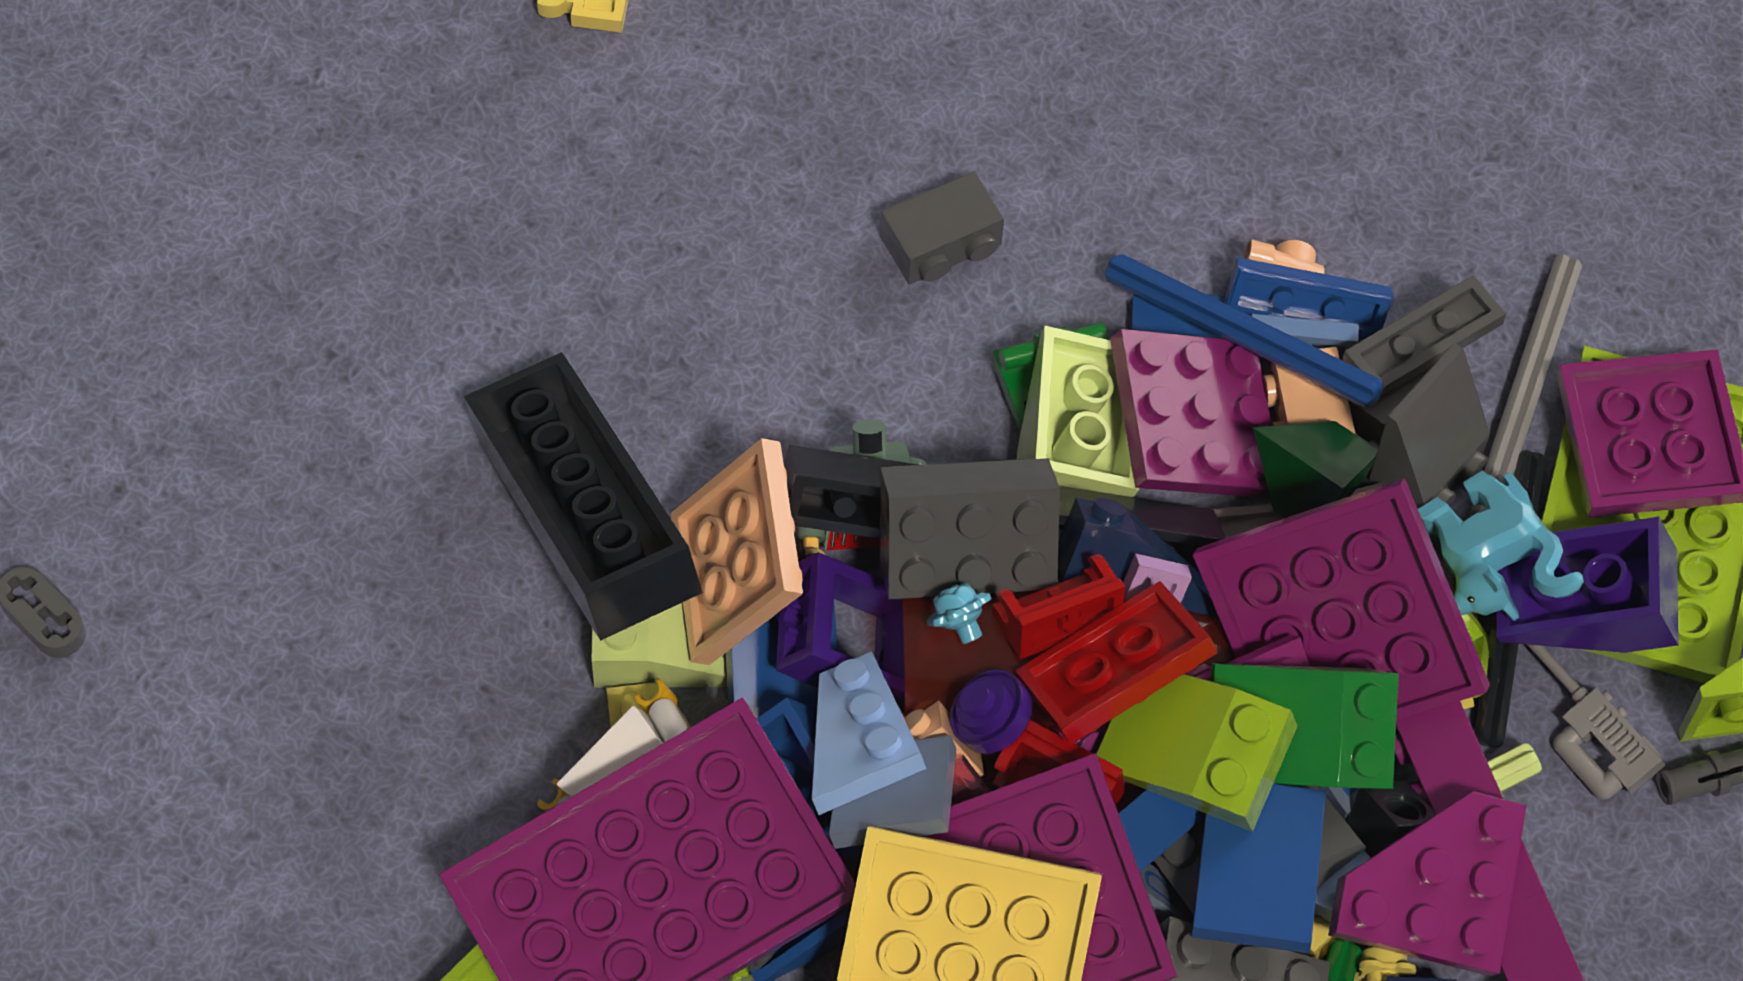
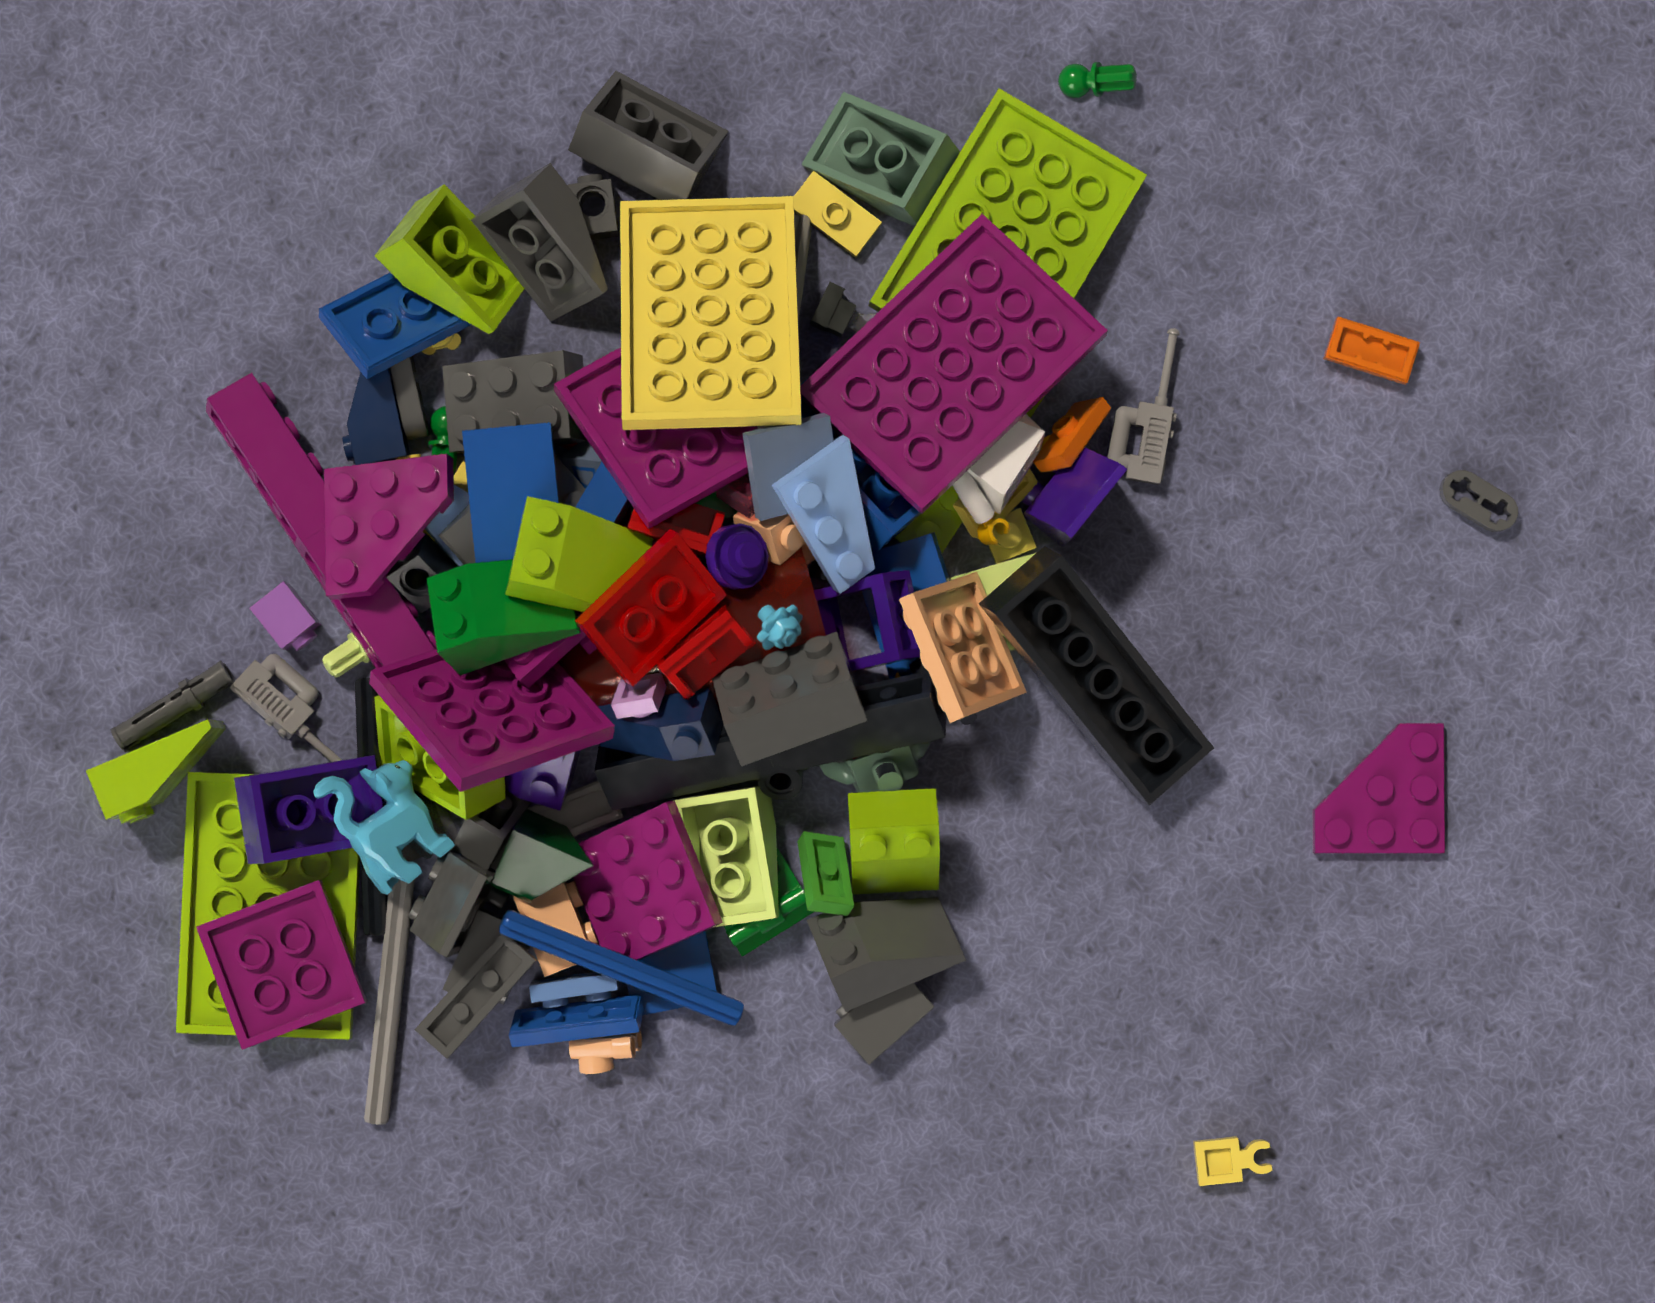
camera: 165 degrees right, 25 degrees up
(107, 816) = (1371, 350): none -> orange plate
(272, 317) = (1389, 798): none -> magenta plate
(411, 789) = (1155, 424): none -> light grey piece
(520, 792) = (1072, 434): none -> orange plate
(539, 710) = (1072, 495): none -> dark purple slope
(879, 378) = (894, 841): none -> lime slope
(921, 285) = (884, 947): none -> dark grey slope
(971, 378) = (825, 873): none -> bright green plate
(1579, 831) = (286, 617): none -> medium lavender brick

